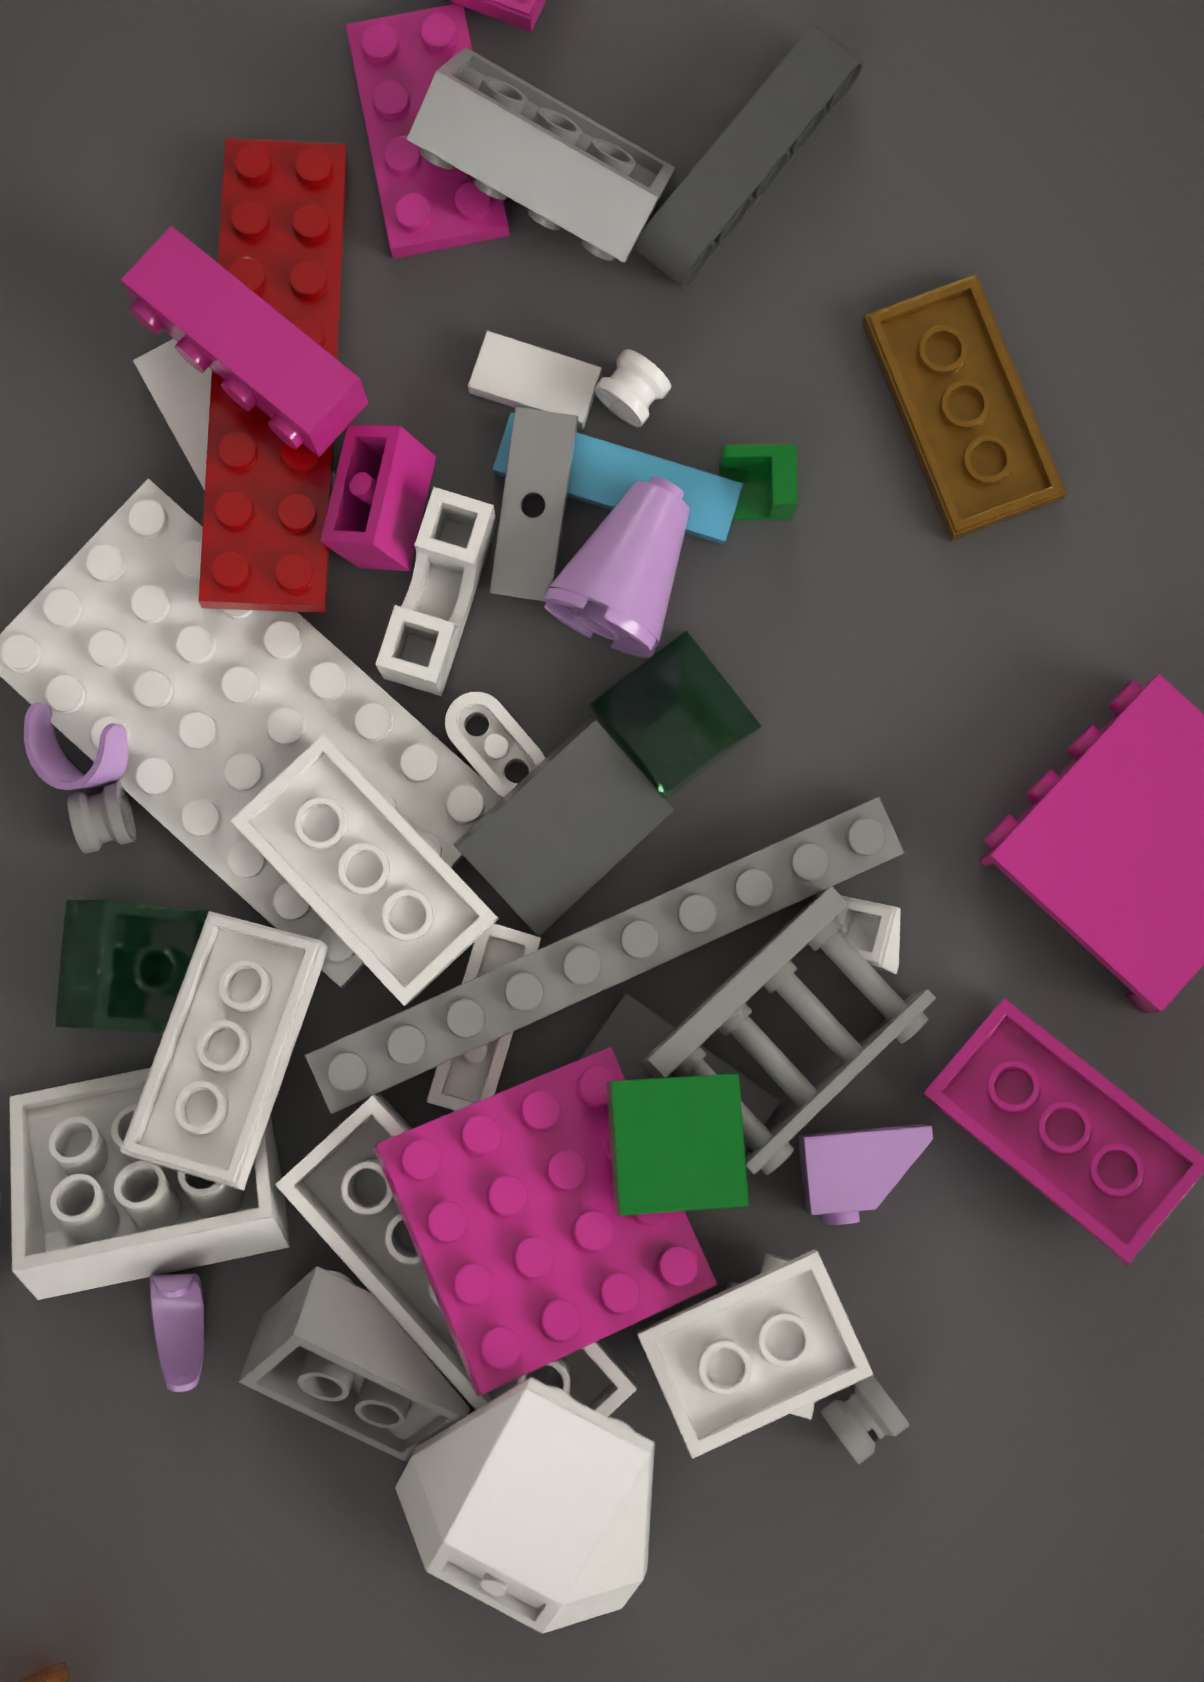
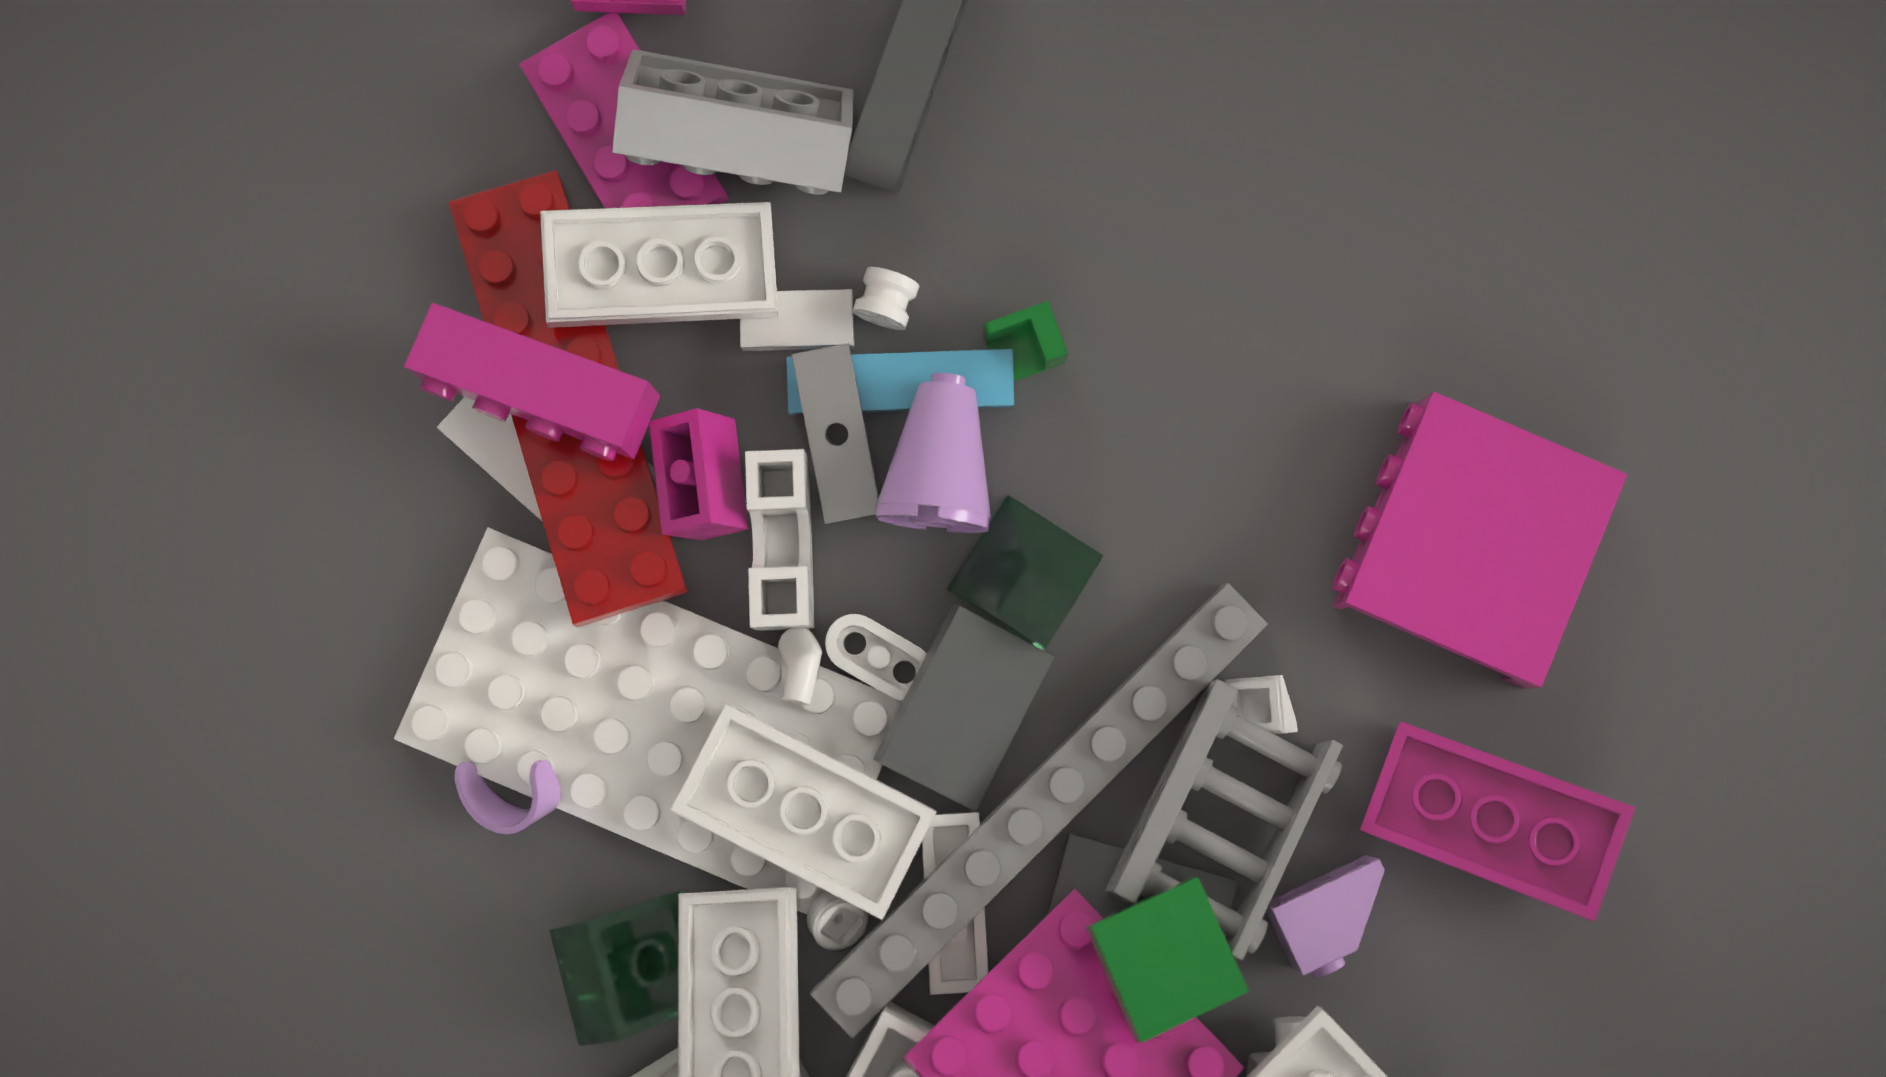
camera: 15 degrees left, 0 degrees up
(101, 818) = (554, 844): light grey wheel -> none
(358, 996) = (835, 922): none -> white tile
(414, 272) = (658, 264): none -> white tile
(417, 718) = (802, 659): none -> white arm
(963, 407) = (1178, 213): pearl gold tile -> none

